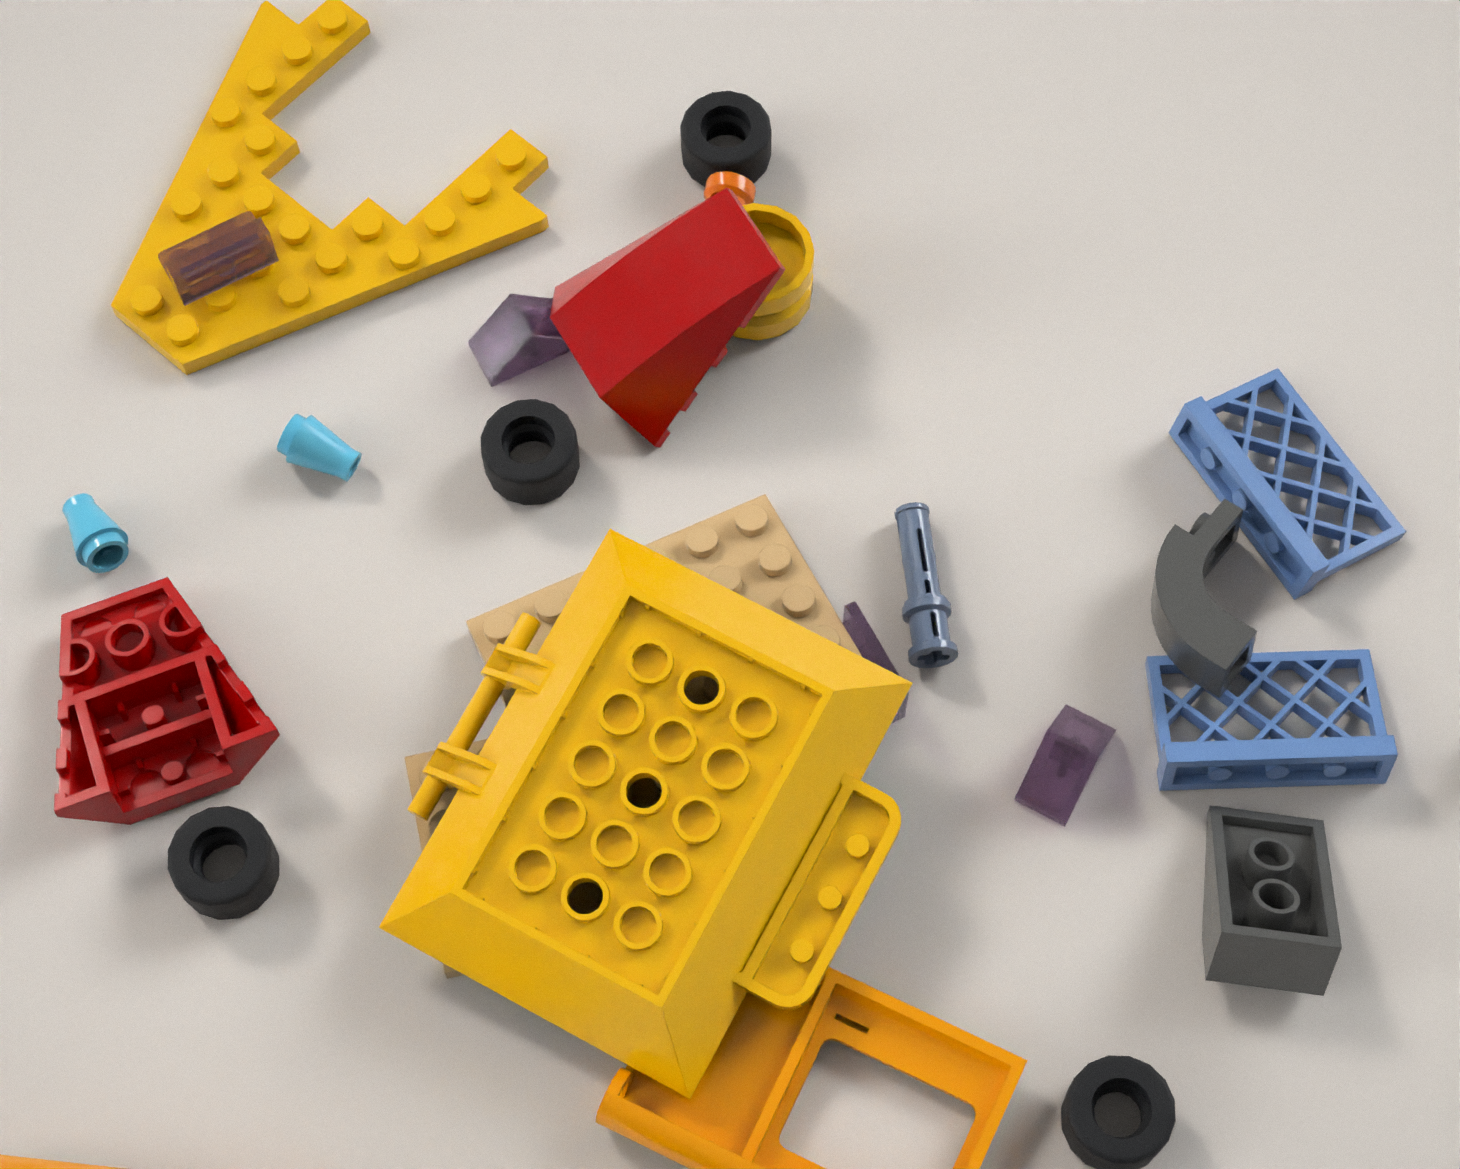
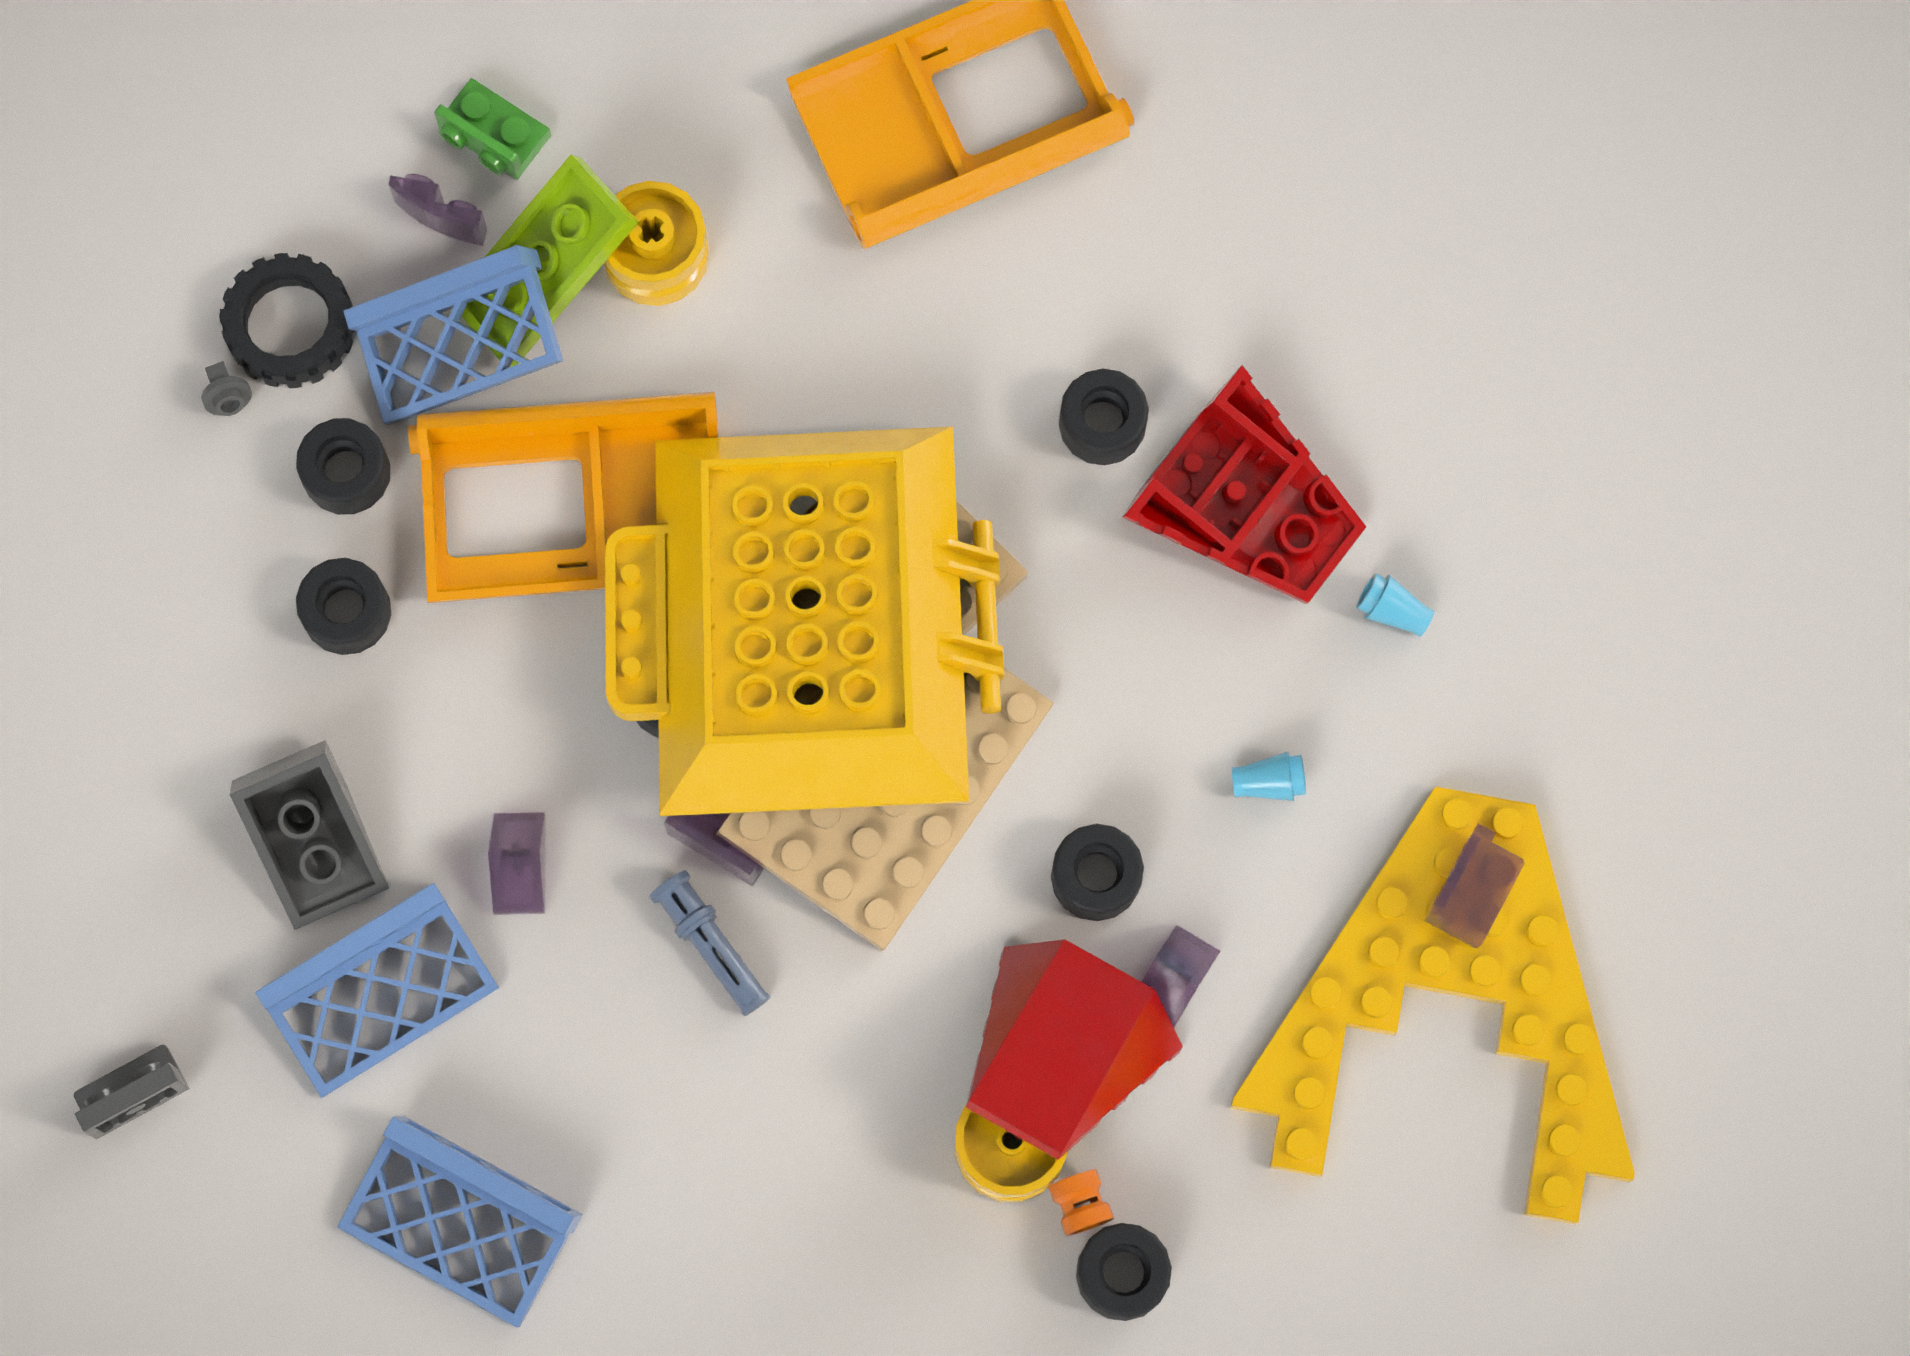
camera: 145 degrees right, 10 degrees up
(1191, 627) = (476, 1020): dark grey arch -> none

